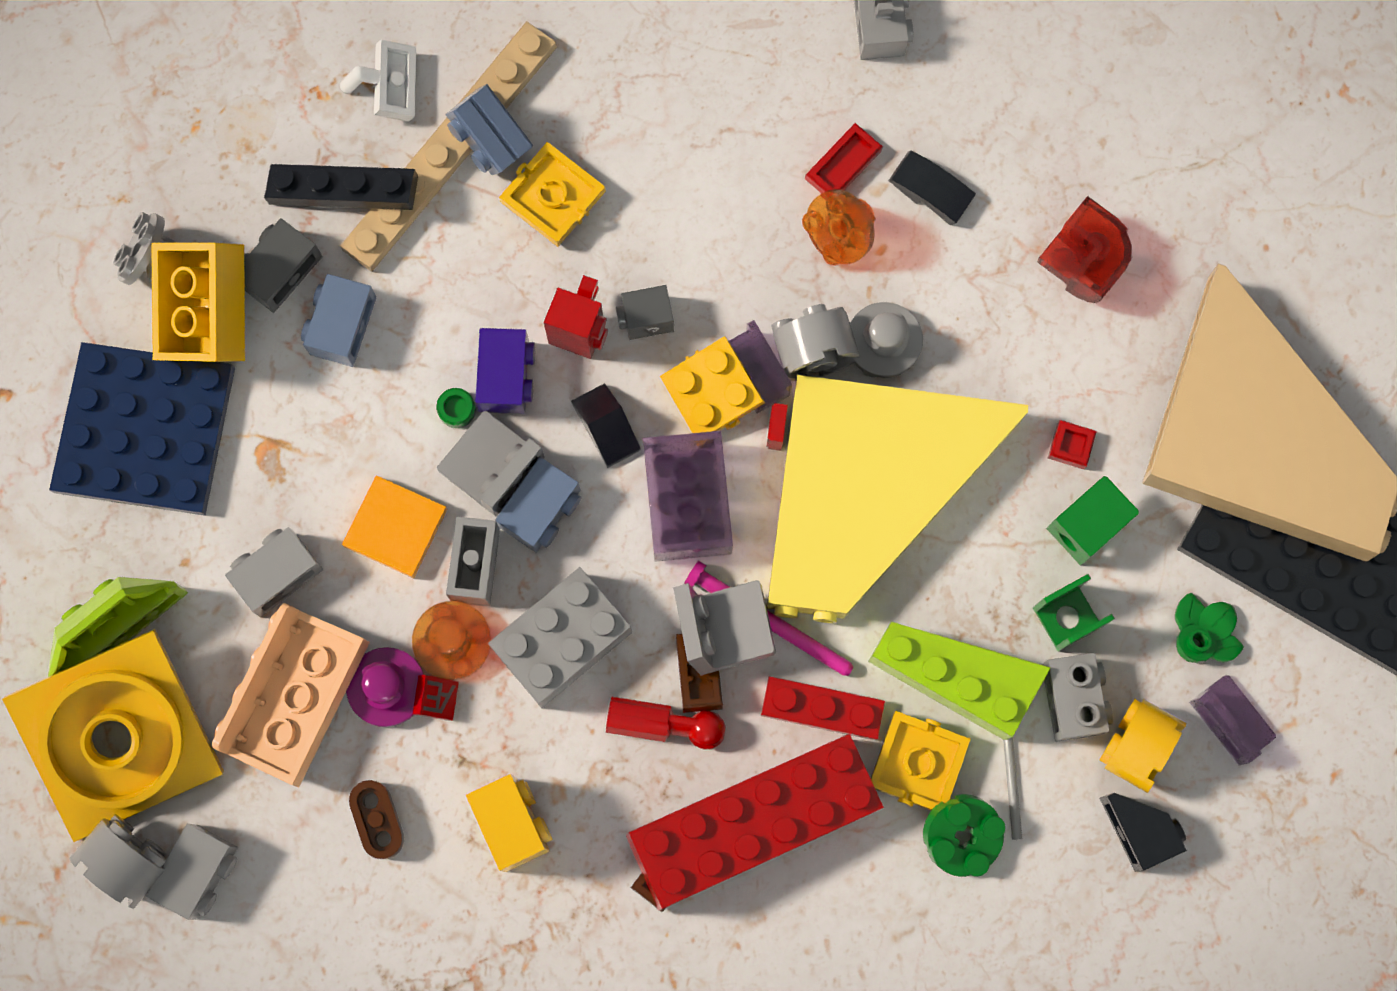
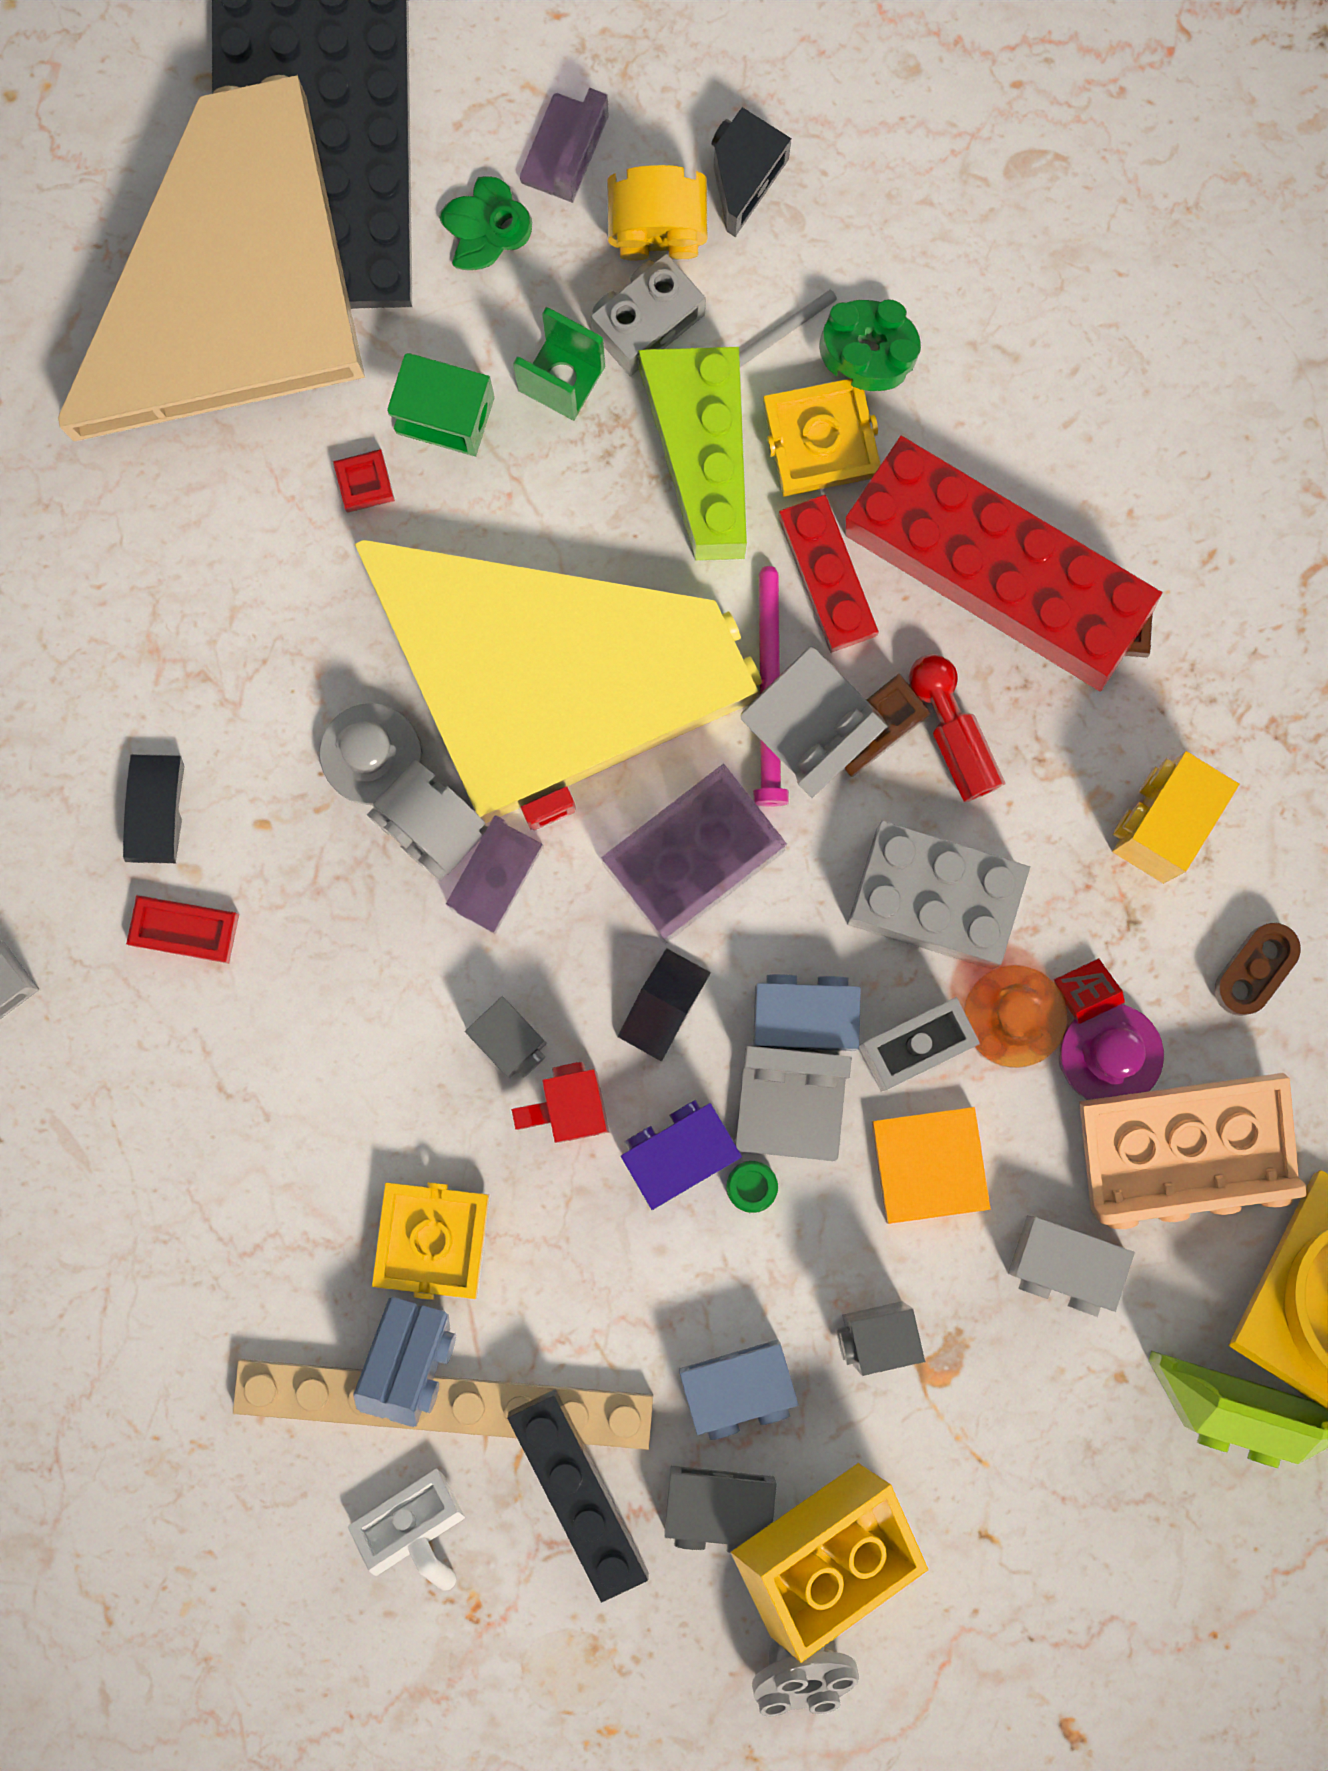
camera: 120 degrees left, 5 degrees up
(142, 429) = (1011, 1534): dark blue plate -> none
(308, 419) = (880, 1338): none -> dark grey brick
(712, 388) = (550, 908): yellow plate -> none
(840, 226) = (268, 877): clear orange plate -> none
(1089, 252) = (128, 582): clear red brick -> none

